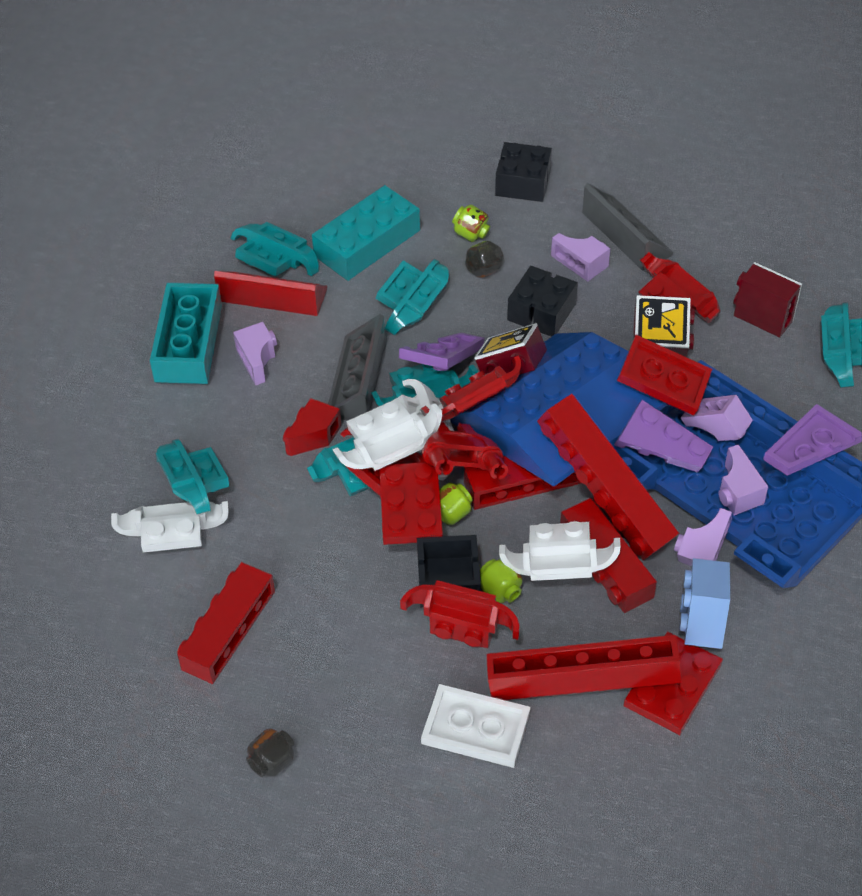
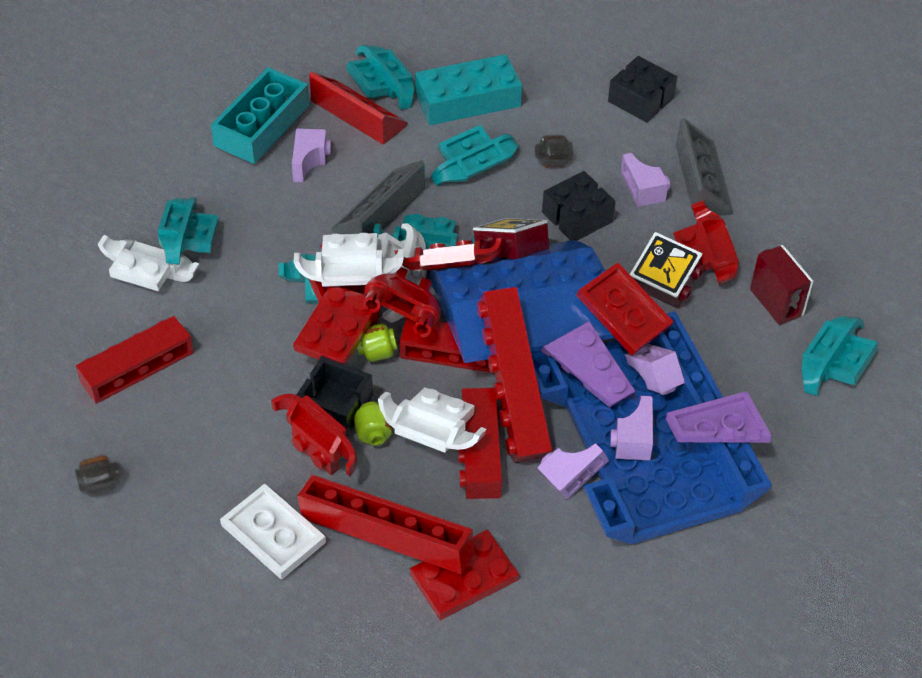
camera: 25 degrees right, 0 degrees up
(313, 428) = (307, 233): red slope -> none
(445, 353) = (451, 215): medium lavender wing -> none
(471, 223) = (564, 115): lime head -> none
(705, 603) = (528, 518): light blue brick -> none

